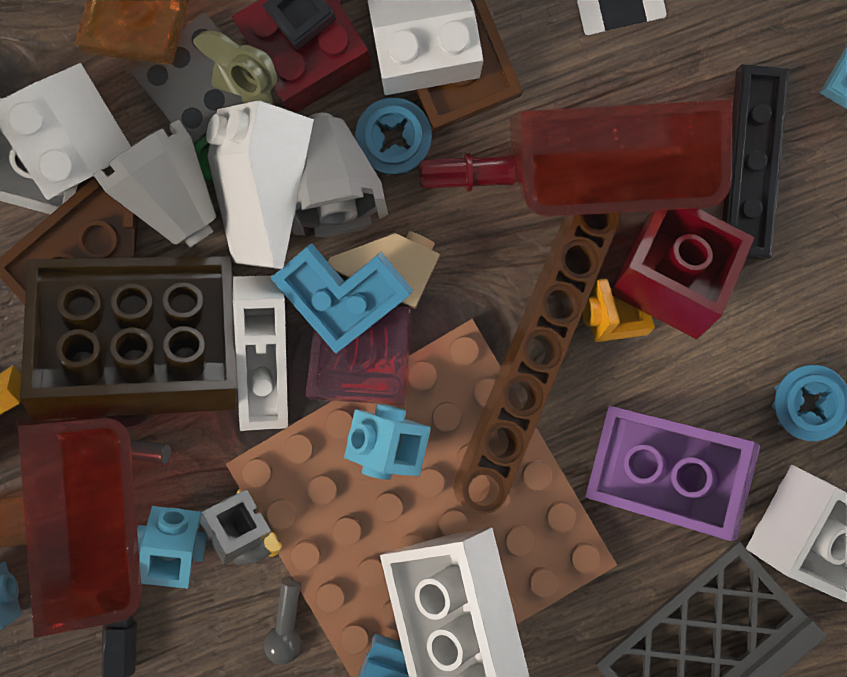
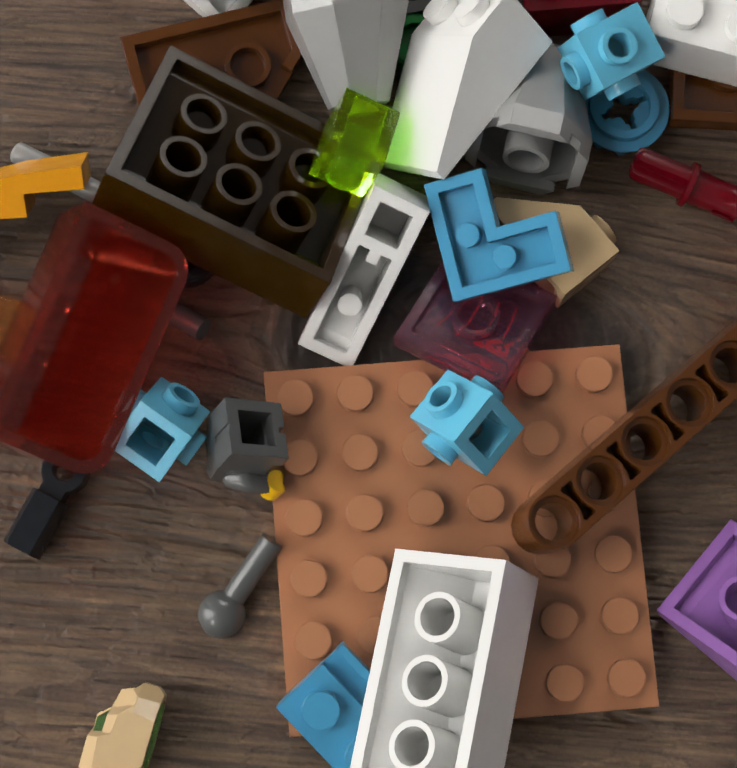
camera: 20 degrees right, 10 degrees down
(204, 267) = (354, 143): none -> clear neon green brick
(372, 96) = (609, 52): none -> medium azure brick

